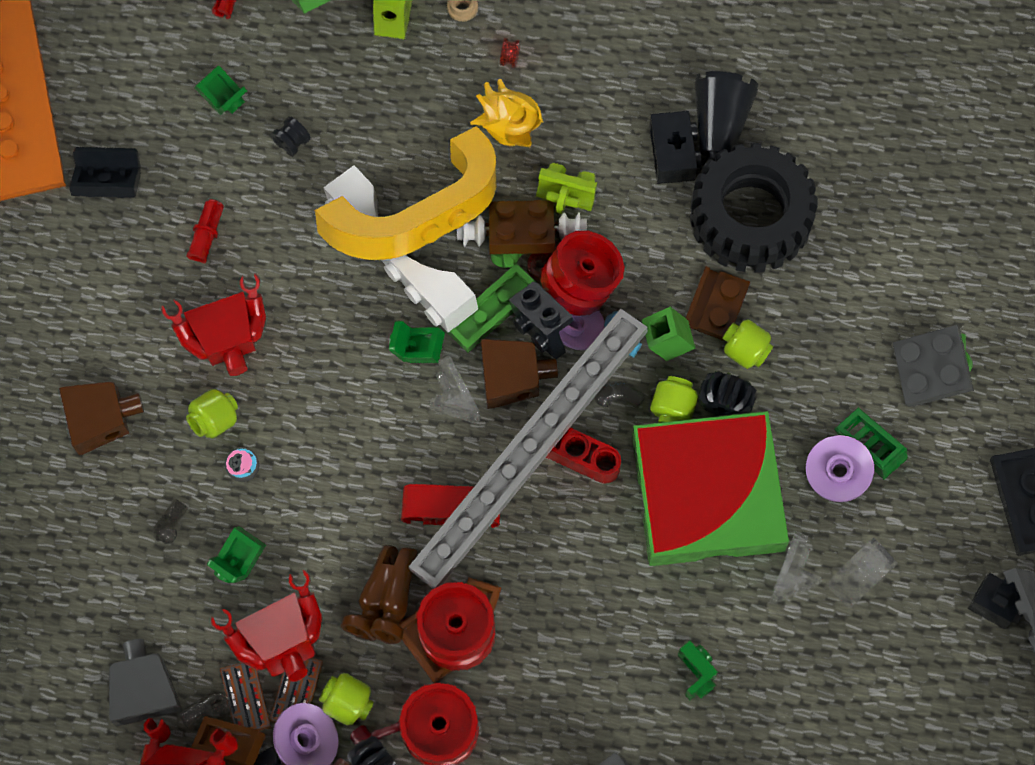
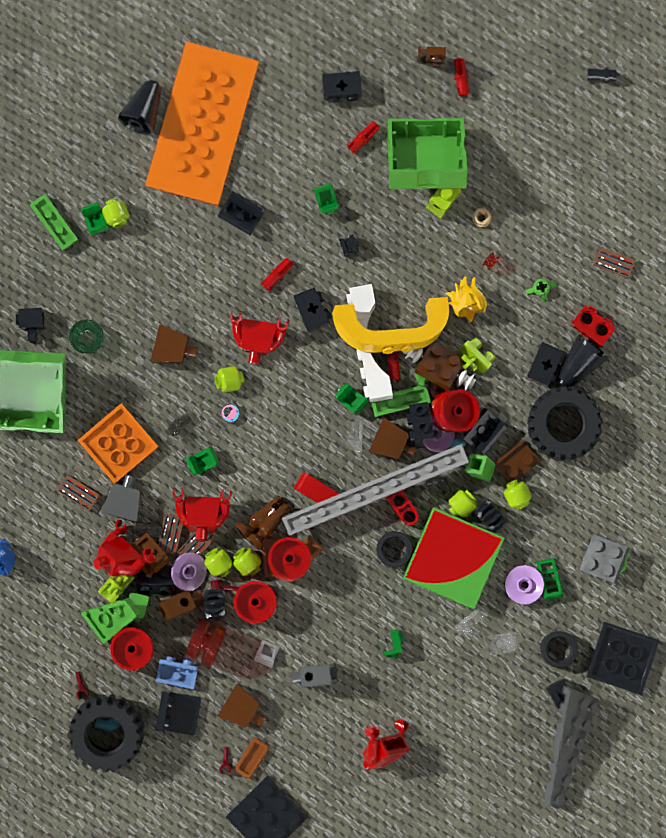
camera: 30 degrees right, 15 degrees up
(60, 716) = (78, 493): none -> tile
(86, 603) = (118, 443): none -> orange plate
(291, 265) = (304, 301): none -> black brick
(392, 672) = (247, 561): none -> lime head
(450, 260) = (393, 366): none -> red axle
(604, 59) = (539, 292): none -> bright green piece
(619, 501) = (408, 544): none -> black tyre
(643, 283) = (484, 432): none -> black bracket
(710, 53) = (590, 330): none -> red brick
(970, 518) = (573, 649): none -> black tyre

